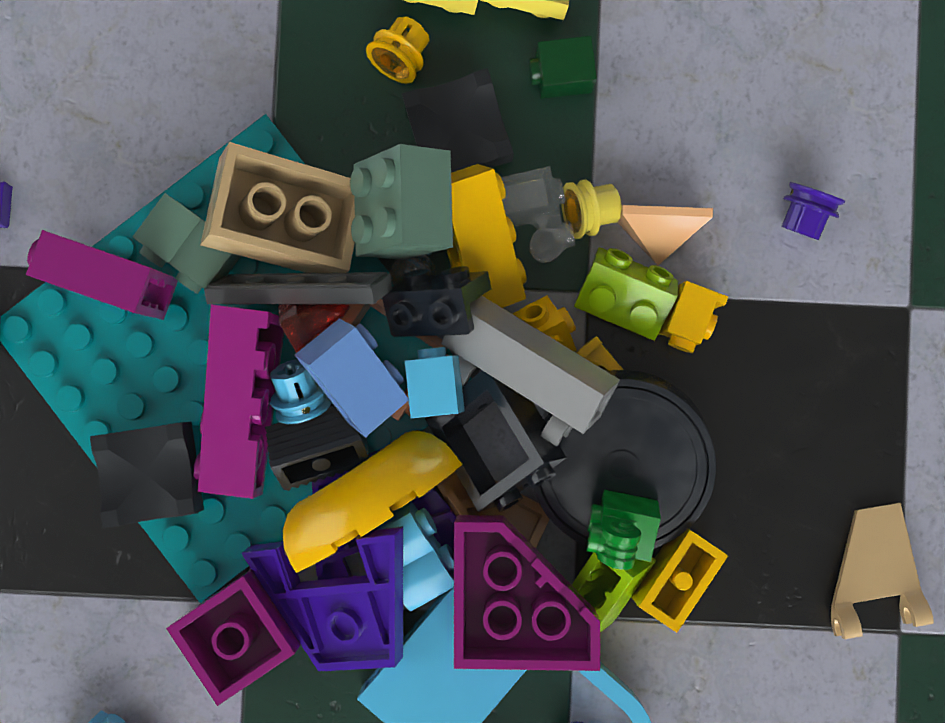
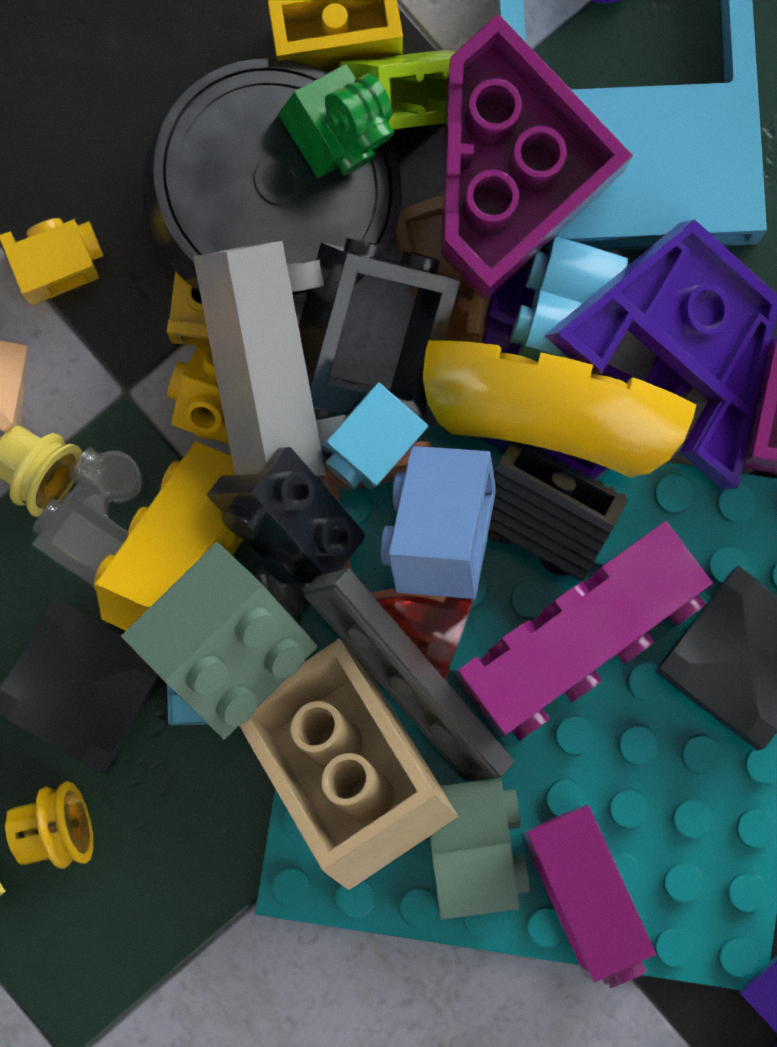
camera: 135 degrees left, 5 degrees down
(296, 395) = (516, 573): medium azure piece -> none
(628, 292) = (87, 347): lime bracket -> none

